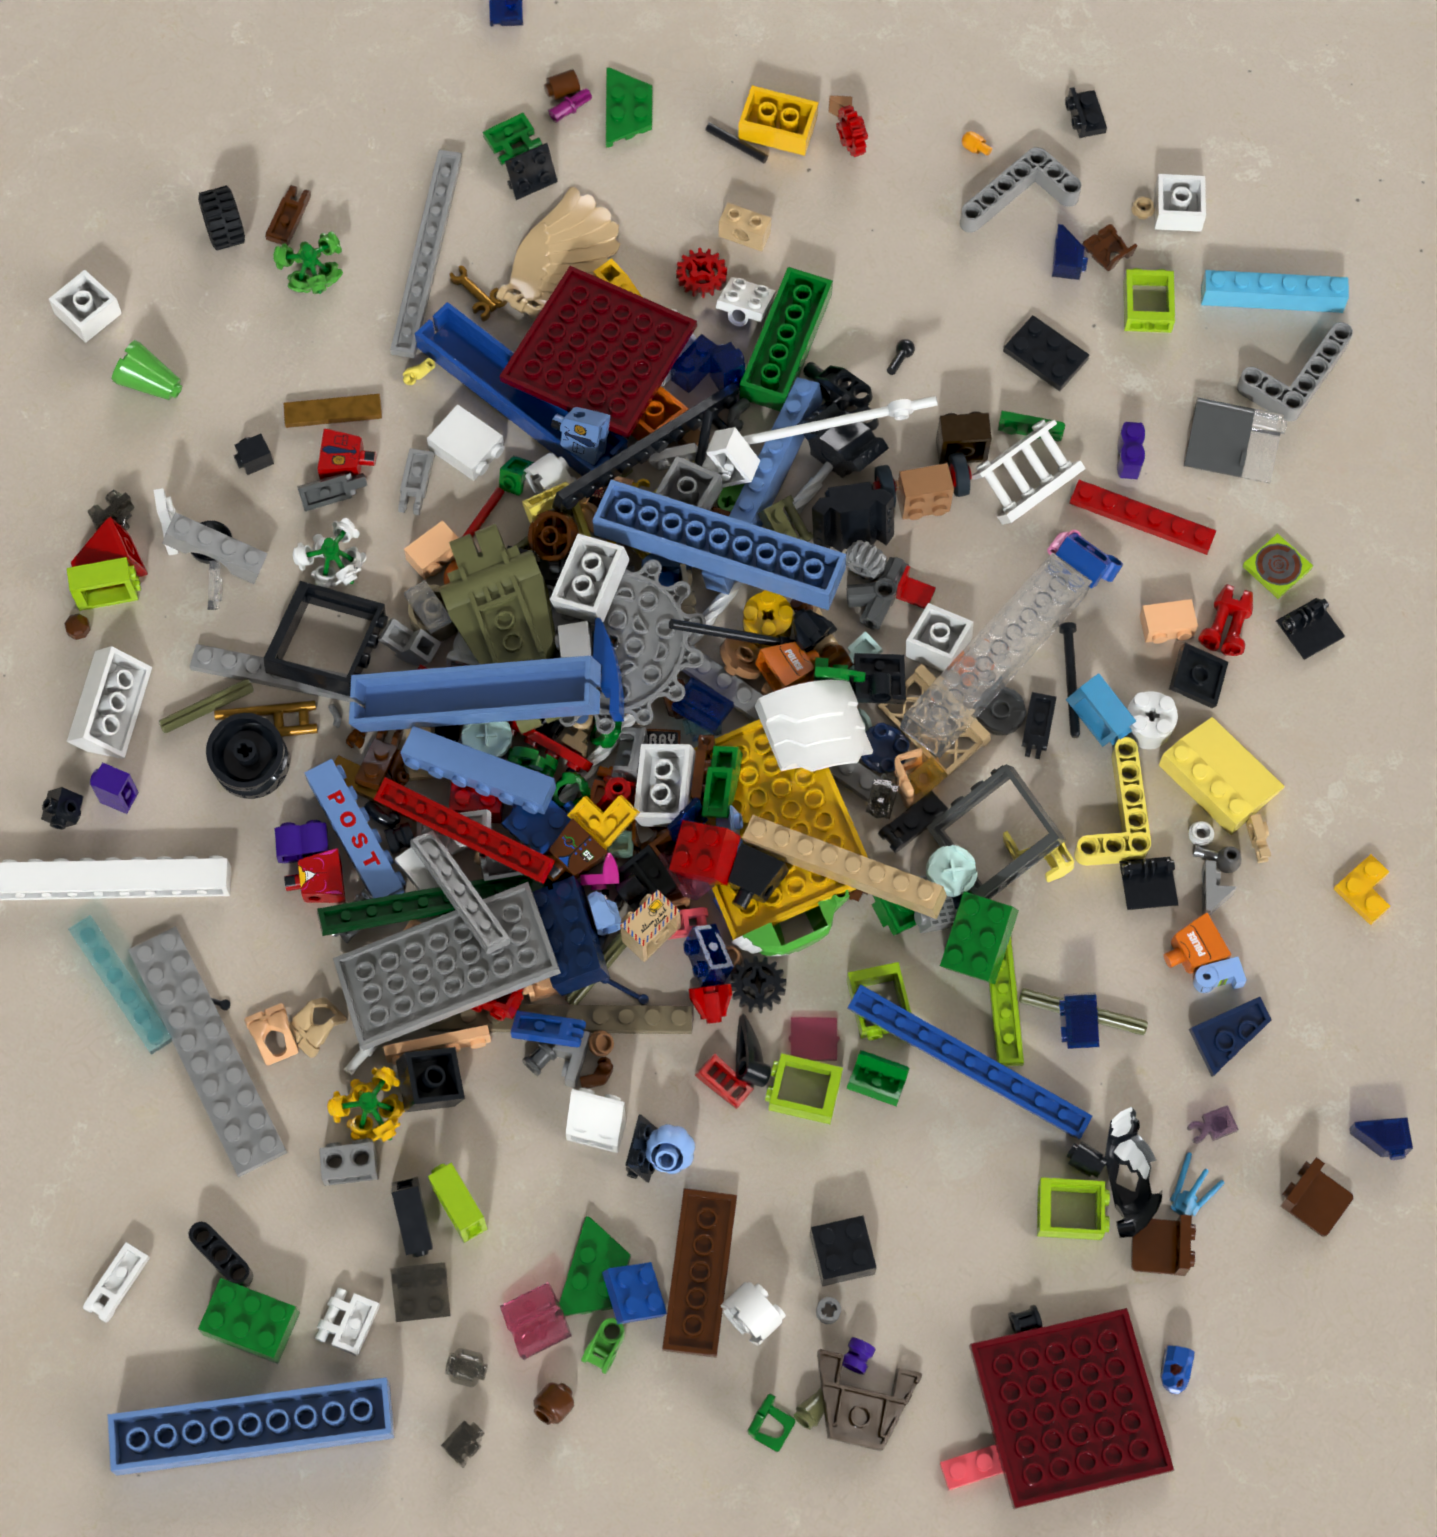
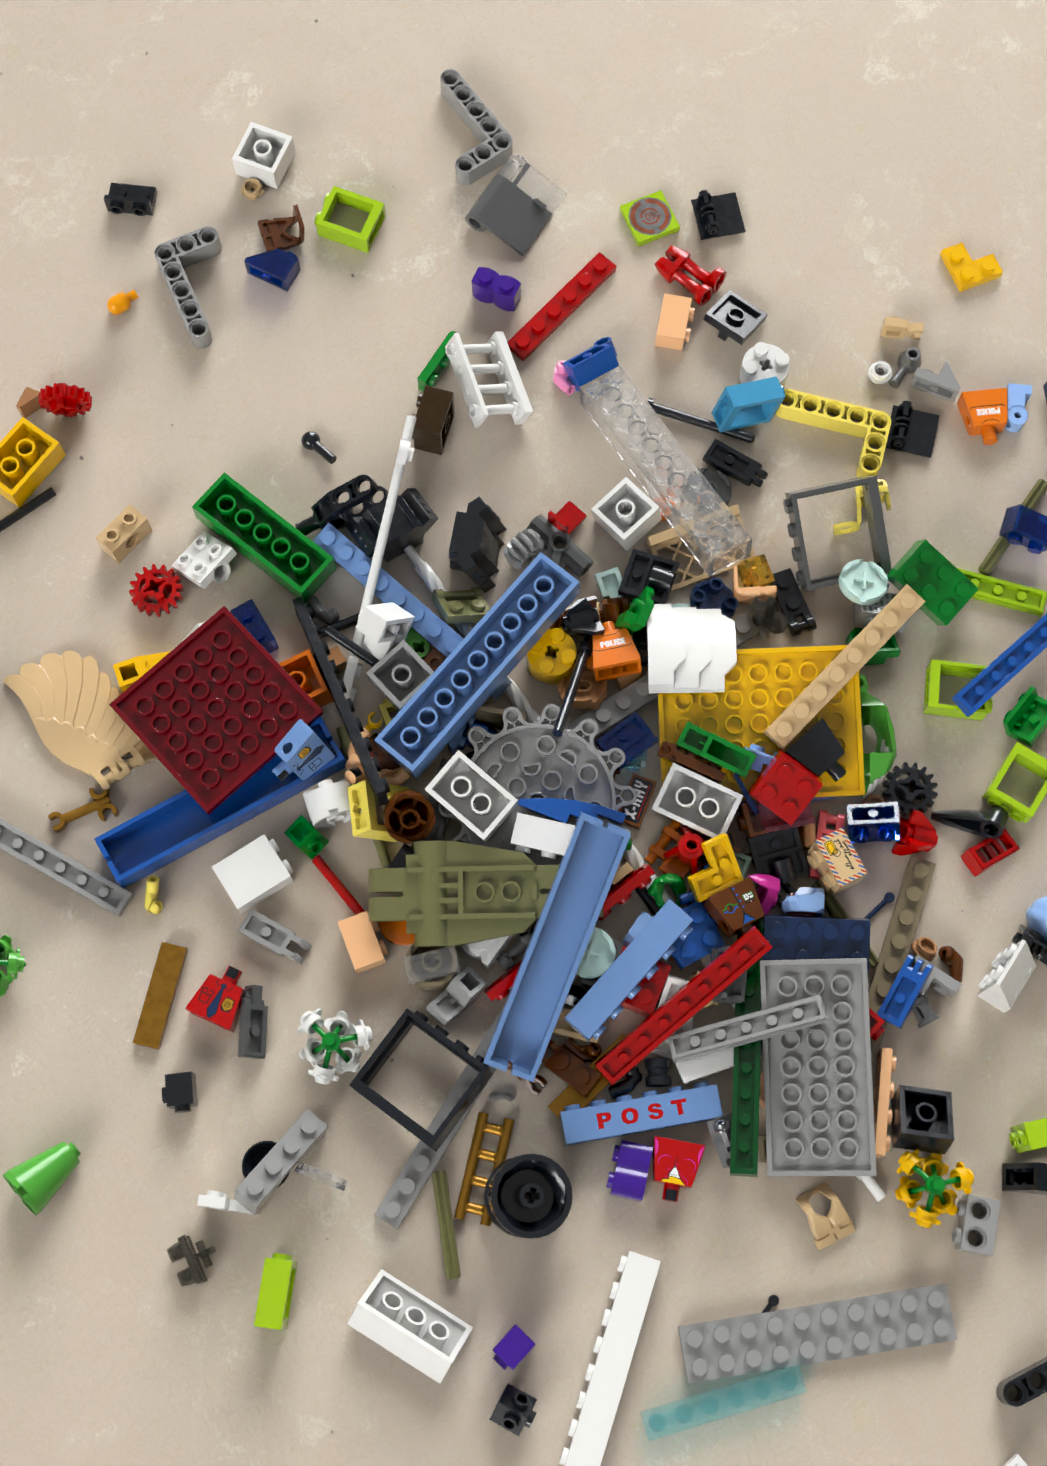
camera: 70 degrees left, 5 degrees up
(77, 626) = (307, 1335): reddish brown tile -> none
(110, 543) = (240, 1277): red slope -> none
(262, 1023) = (808, 1264): light nougat piece -> none
(530, 759) = (629, 913): green plate -> none
(629, 753) = (651, 826): light grey hinge -> none
(726, 365) = (275, 600): clear blue brick -> none
(814, 1038) = (971, 760): clear pink piece -> none
(928, 488) = (475, 468): medium nougat brick -> none
(1046, 353) = (366, 323): black plate -> none
(1220, 775) = (832, 336): light yellow slope -> none
(1274, 291) = (384, 116): medium azure brick -> none

